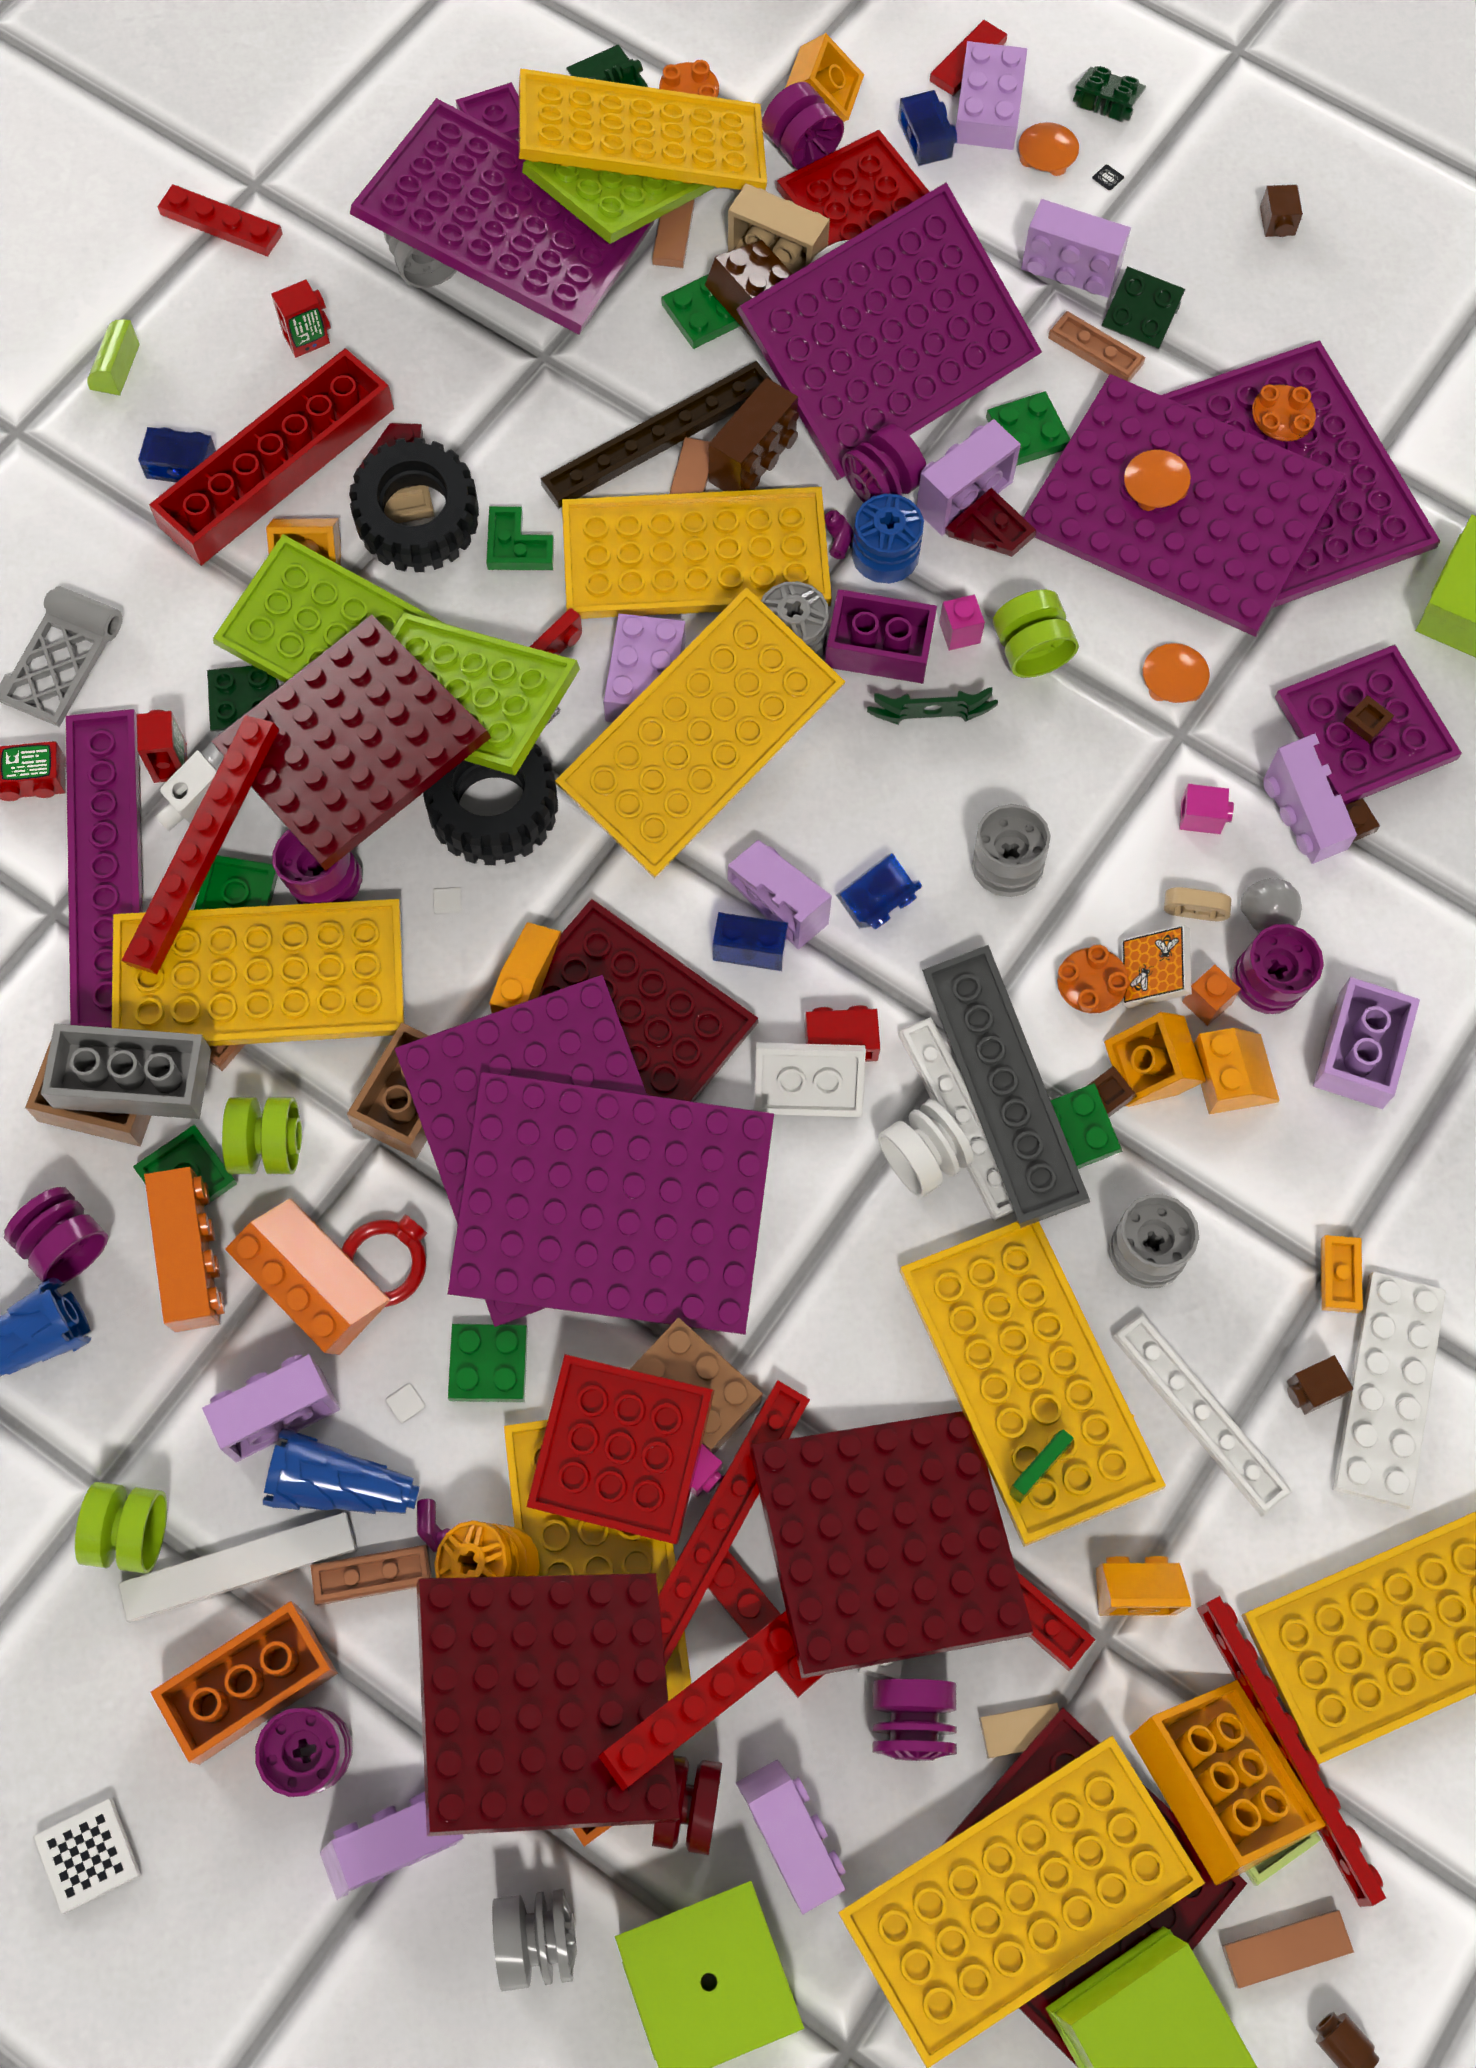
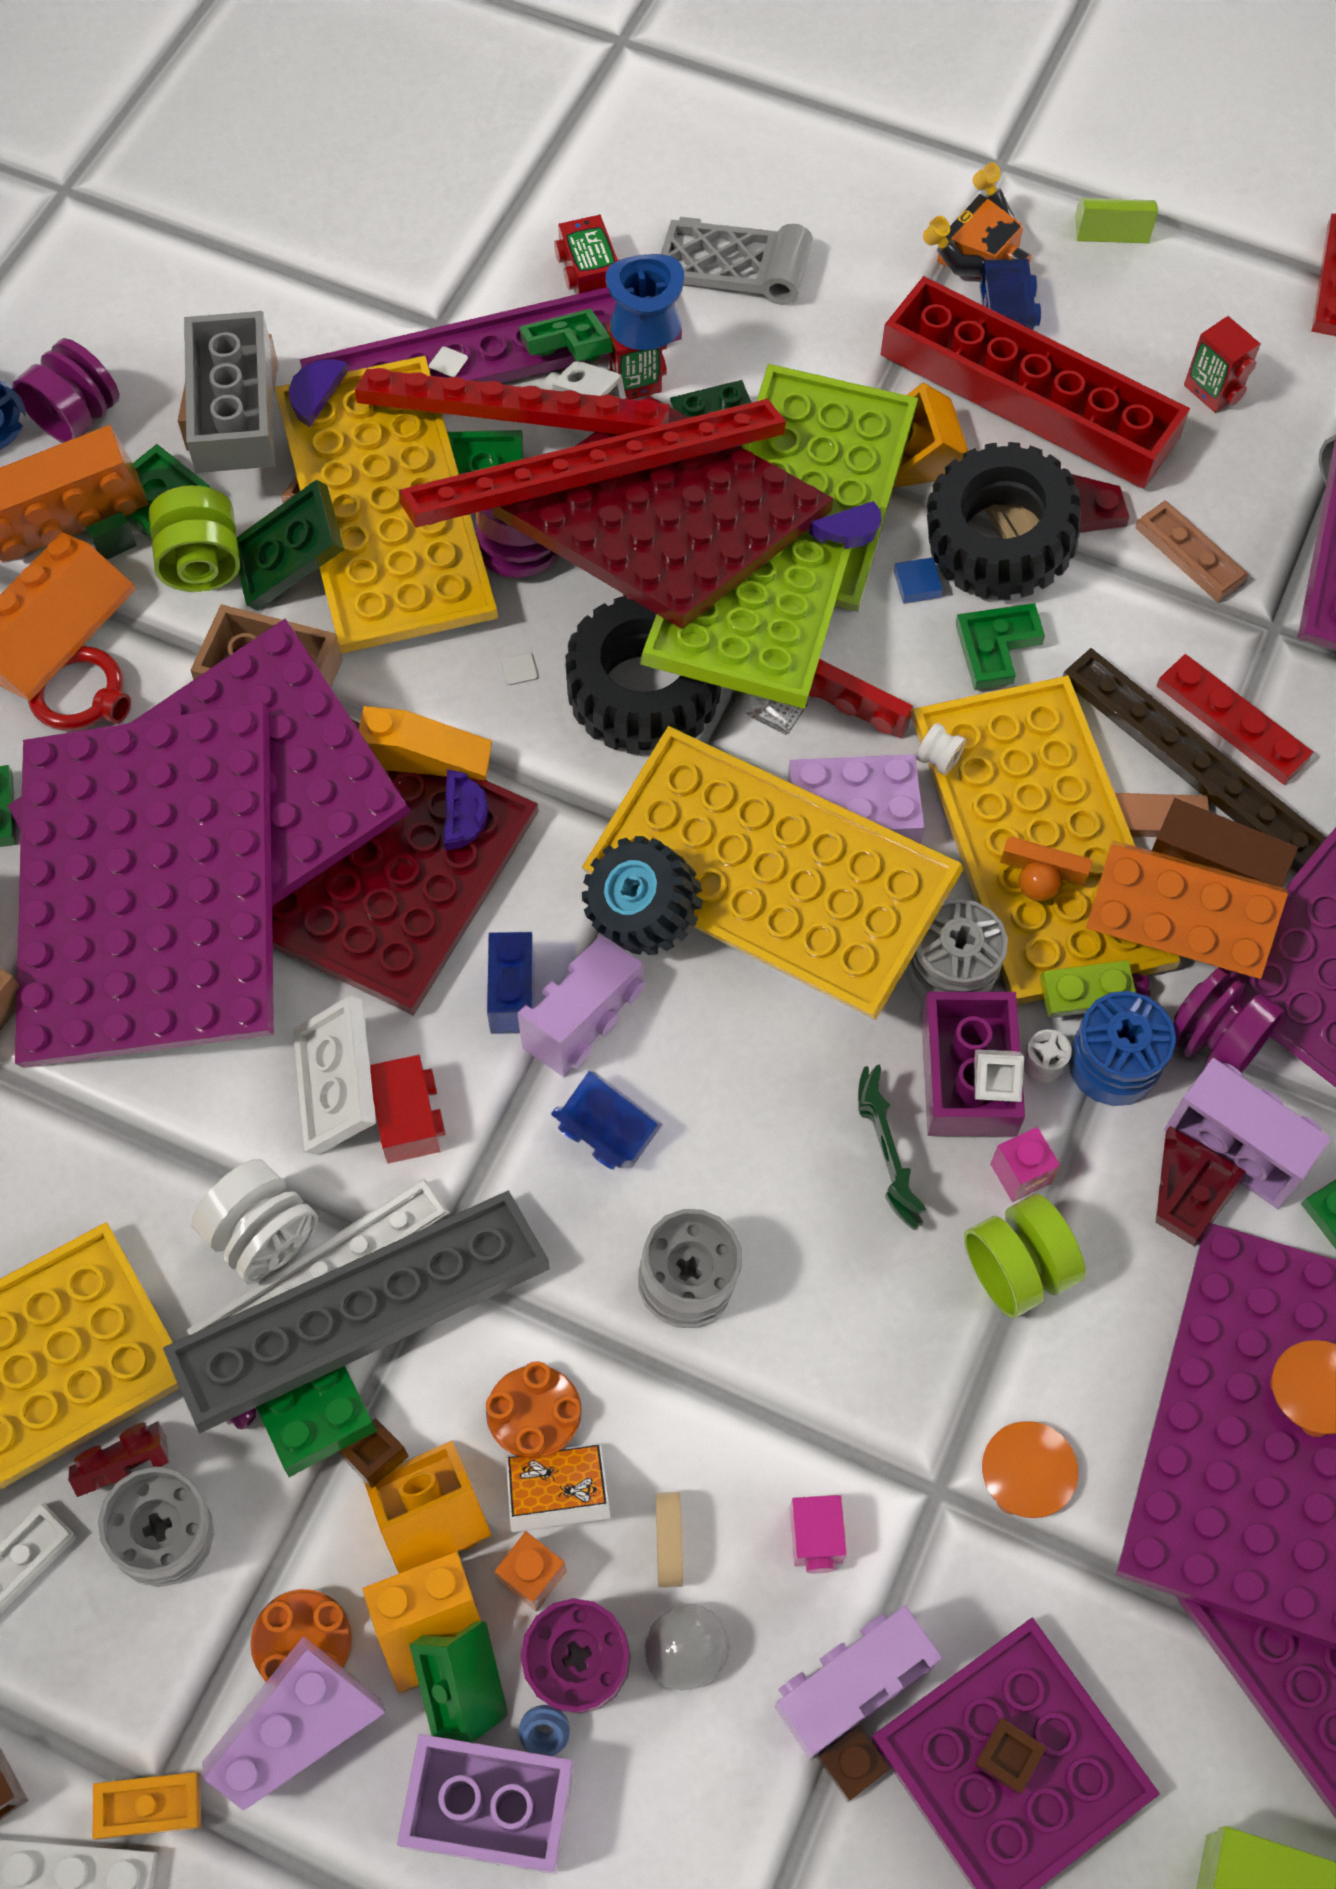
camera: 80 degrees right, 5 degrees down
(101, 456) = (981, 232): none -> torso
(113, 902) = (448, 361): none -> white sticker
(120, 787) = (578, 331): none -> green plate
(128, 1010) = (314, 387): none -> dark purple tile
(141, 704) = (645, 300): none -> blue hat
(227, 1215) = (111, 536): none -> dark green tile
(290, 1054) = (288, 545): none -> dark green plate
(304, 780) = (590, 462): none -> red plate
(398, 609) = (853, 526): none -> dark purple tile
(439, 586) = (918, 580): none -> blue tile
(461, 392) = (1192, 551): none -> nougat tile
(589, 952) = (464, 810): none -> dark purple tile
(616, 595) = (941, 749): none -> white wheel
(620, 403) = (1234, 719): none -> red plate
(707, 824) = (642, 895): none -> black wheel
(736, 550) = (1044, 867): none -> orange tile
(798, 461) = (1187, 909): none -> orange brick
(835, 548) = (1077, 988): none -> lime plate
(877, 582) = (1051, 1046): none -> white wheel
(903, 612) = (998, 1075): none -> white slope
(1096, 1266) = (100, 1467): none -> dark red wing
(1239, 1157) = (292, 1617): none -> orange dish
(1286, 1053) = (459, 1683): none -> green panel
(1303, 1166) = (289, 1725): none -> lavender wedge
(1318, 1005) = (541, 1743): none -> medium blue plate

